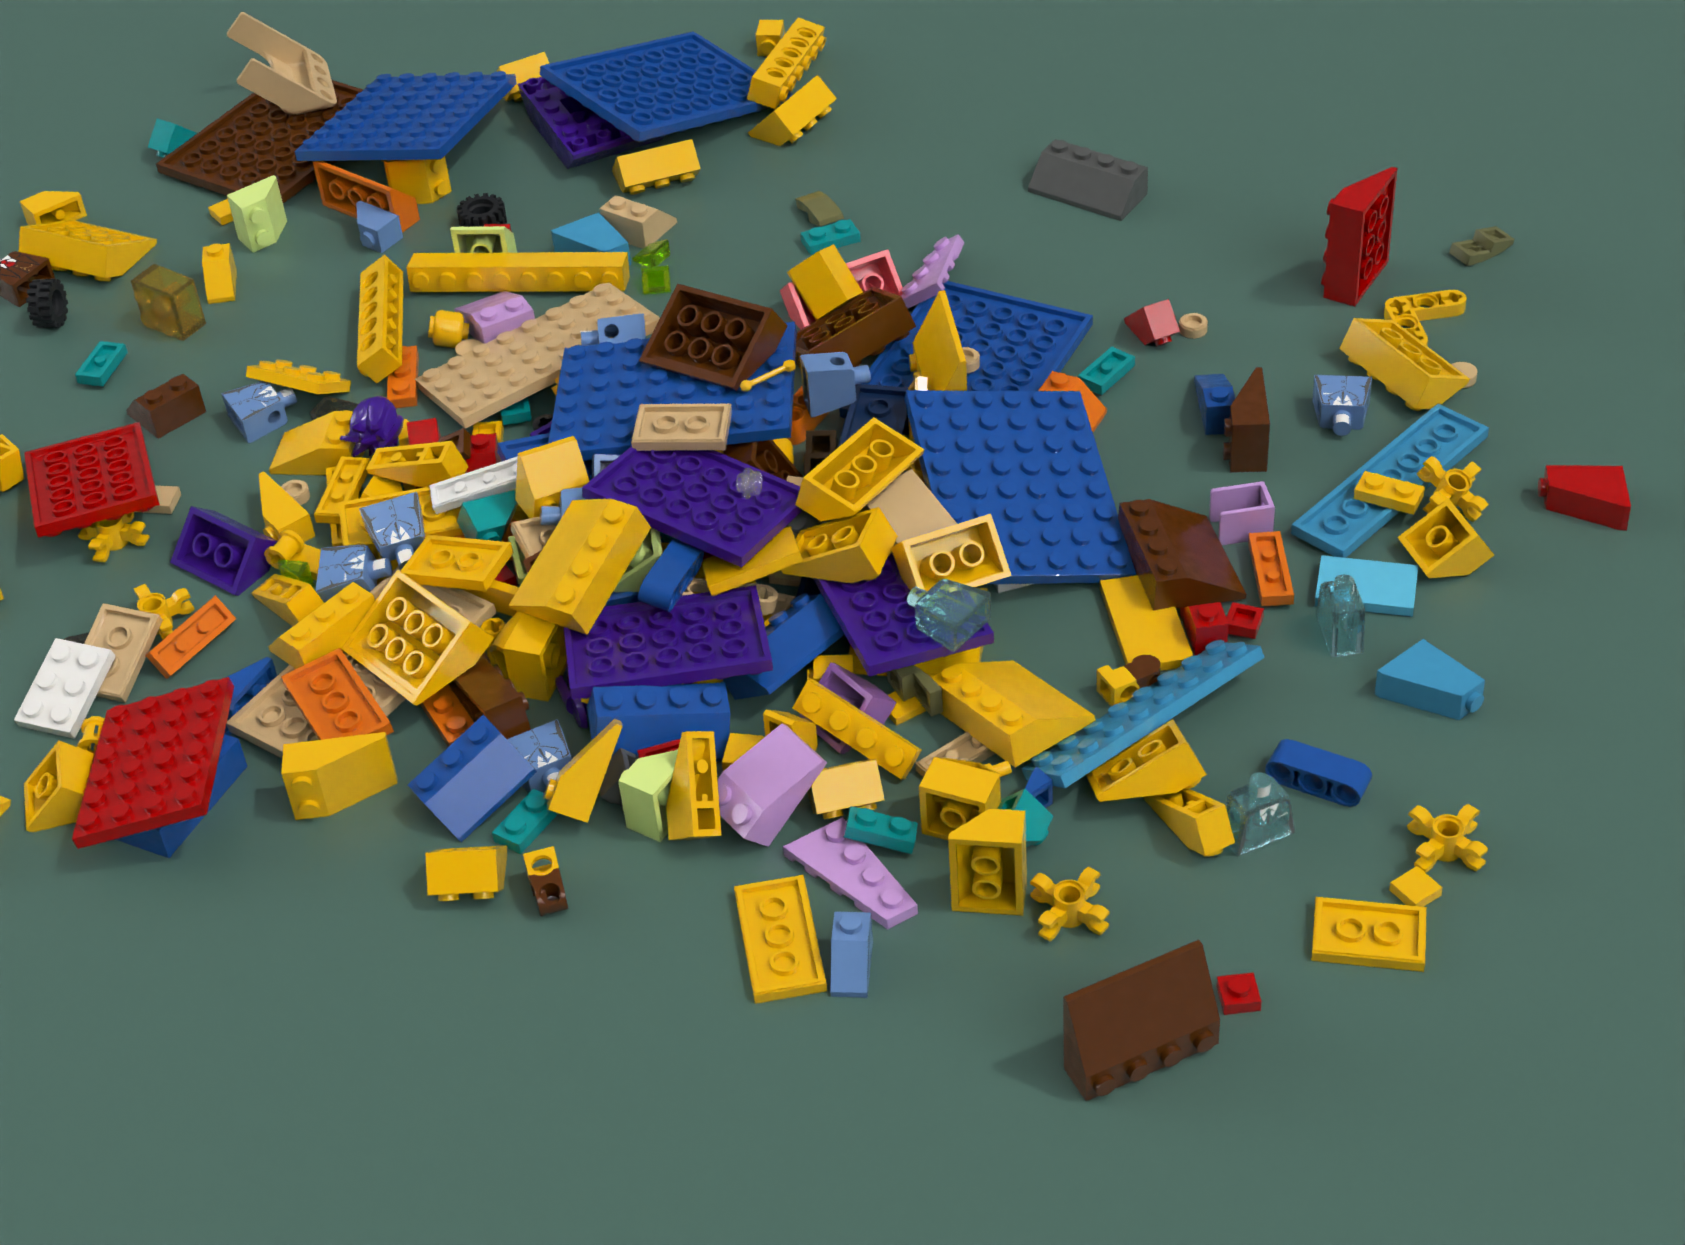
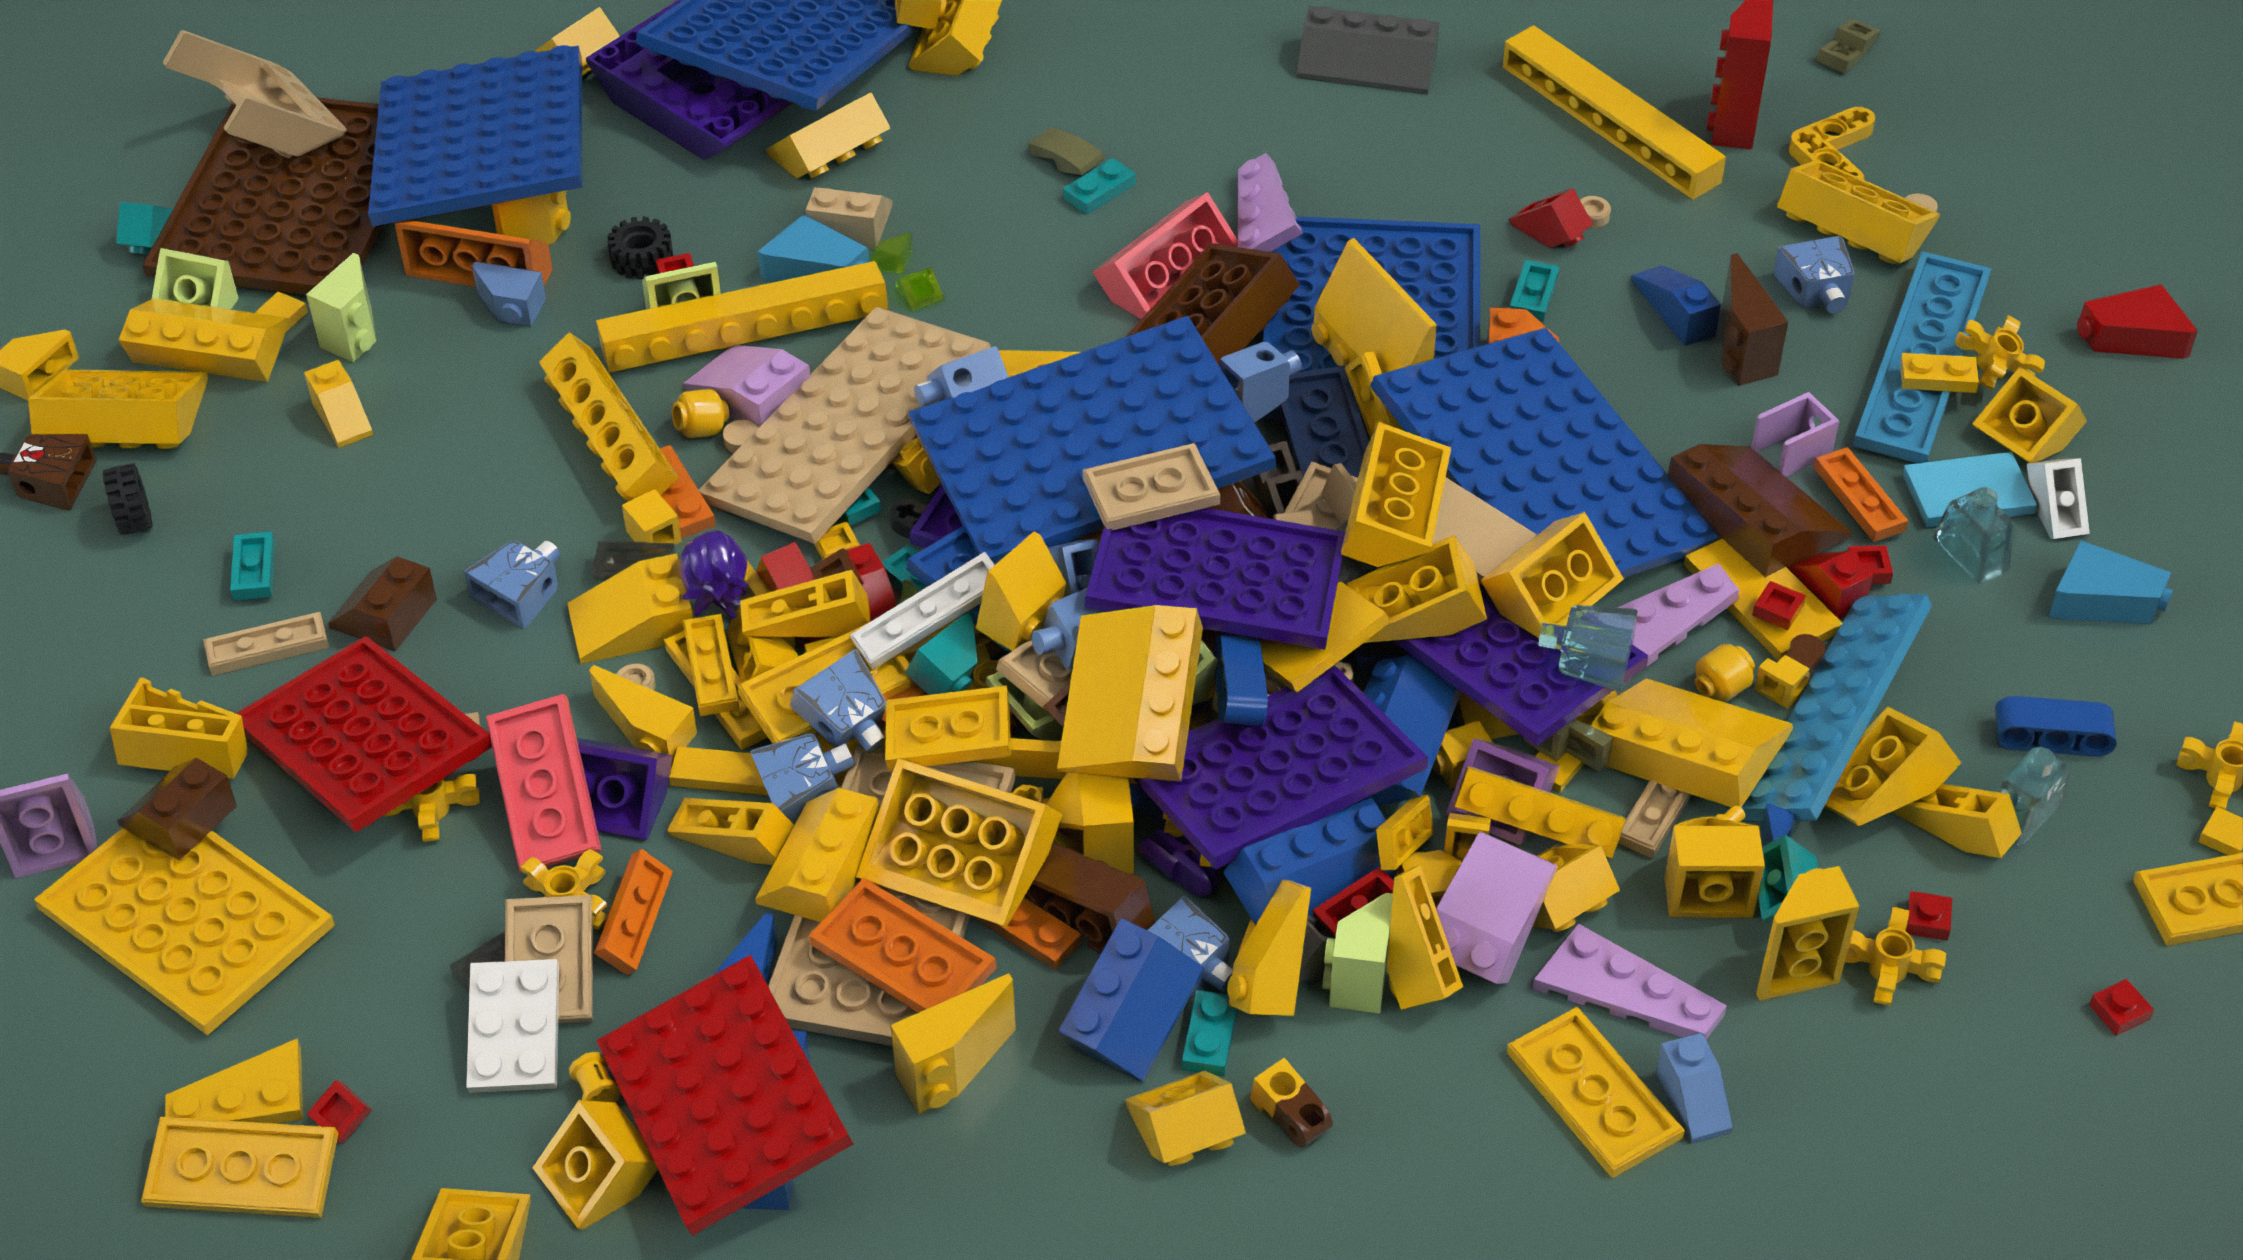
camera: 25 degrees left, 5 degrees up
(80, 414) = (265, 643): none -> tan tile
(162, 216) = (203, 339): none -> yellow slope
(168, 302) = (303, 460): clear yellow brick -> none
(176, 185) = (194, 280): none -> yellowish green slope
(178, 535) = (543, 782): none -> coral tile
(285, 548) = (688, 764): yellow bush -> none
(296, 570) = (717, 787): clear neon green slope -> none
(301, 378) = (549, 525): yellow plate -> none
(367, 385) = (651, 519): none -> yellow brick
(713, 337) = (1115, 361): reddish brown slope -> none
(737, 714) = (1404, 832): none -> yellow tile
(749, 483) = (1282, 540): clear plate -> none
(788, 365) = (1227, 377): yellow hinge -> none
(824, 281) = (1156, 252): yellow slope -> none
(881, 829) = (1634, 927): teal plate -> none
(1034, 622) = (1679, 607): none -> lavender wing
(1071, 668) = (1724, 672): none -> yellow head
(1124, 884) = (1929, 915): none -> red plate
(1139, 1021) = (2070, 1079): reddish brown slope -> none
(1143, 630) = (1779, 605): none -> red plate
(1254, 258) = (1614, 112): none -> yellow brick
(1434, 606) = (2059, 496): none -> white slope

